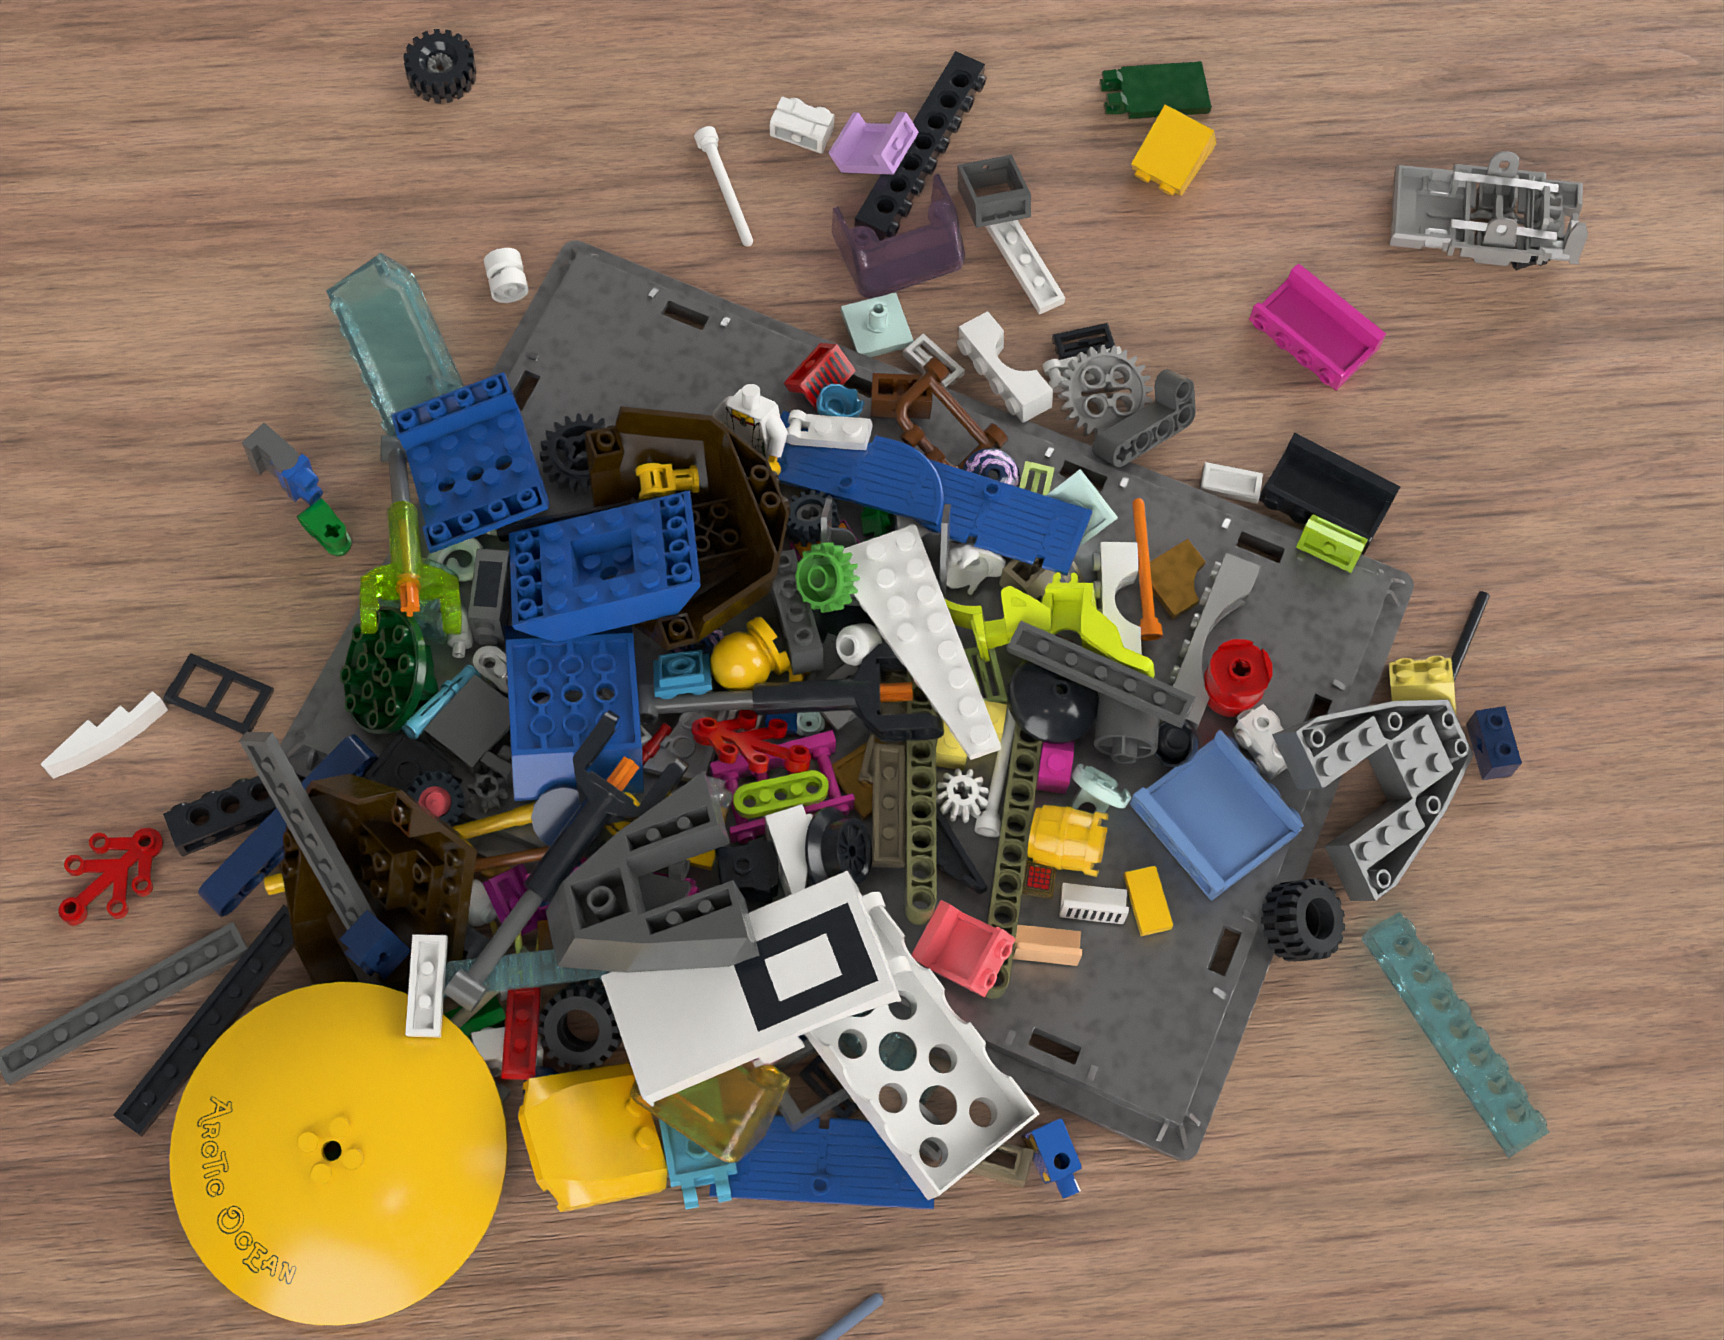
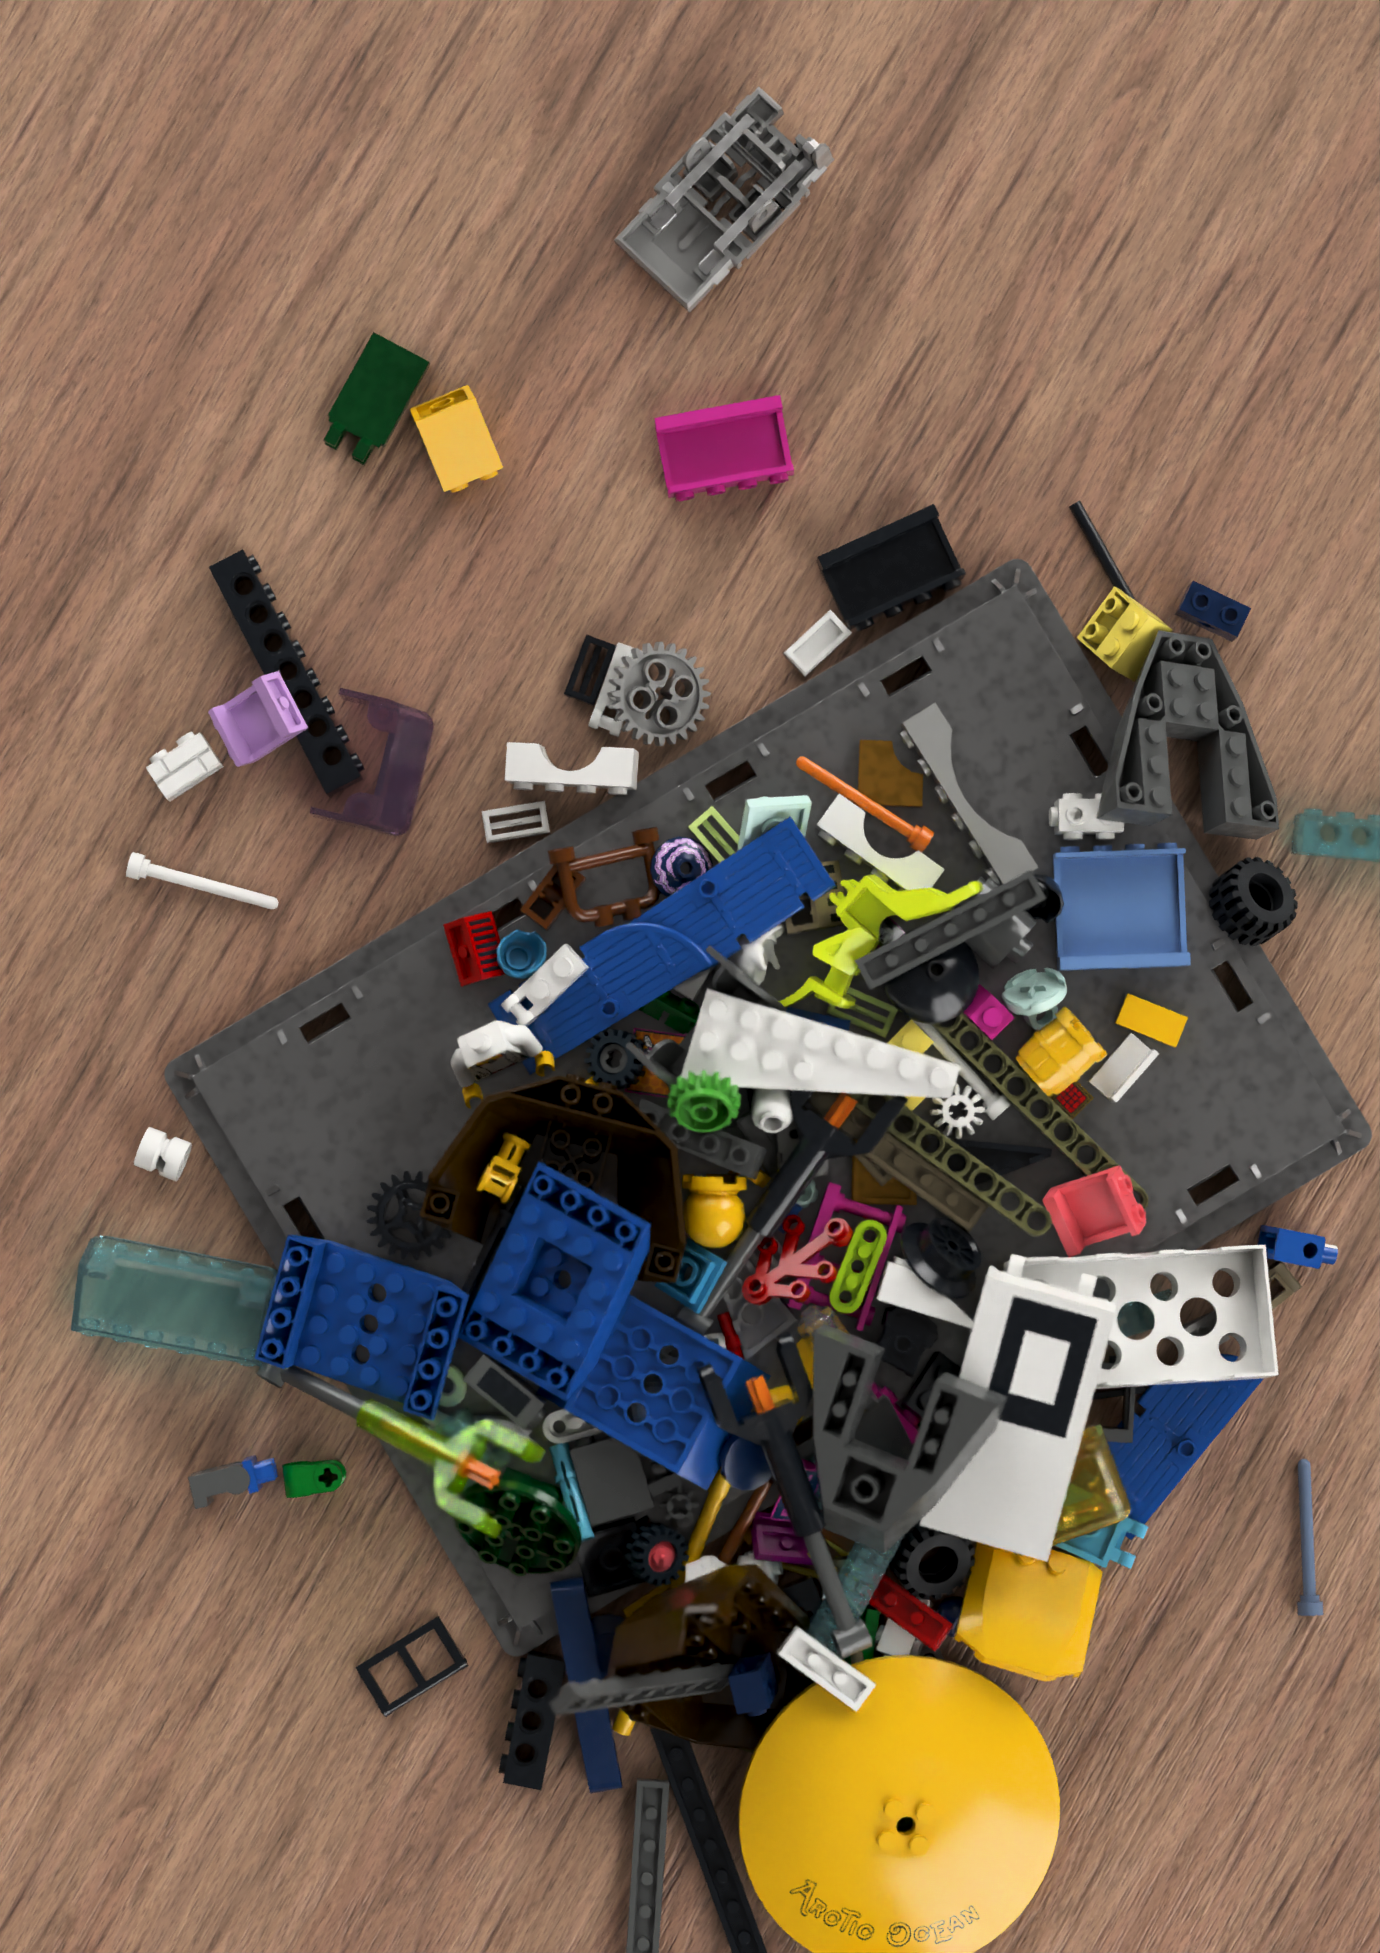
camera: 55 degrees left, 20 degrees up
(93, 742) = (387, 1798): white slope -> none
(114, 872) = (520, 1849): red plant -> none
(877, 325) = (443, 846): light aqua tile -> none
(995, 207) = (410, 653): dark grey window -> none
(1027, 265) = (472, 663): white plate -> none
(1047, 945) = (1131, 1132): light nougat panel -> none
(1153, 424) = (721, 682): dark grey beam -> none
(1237, 677) = (1007, 813): red piece -> none
(1331, 543) = (950, 619): lime tile -> none

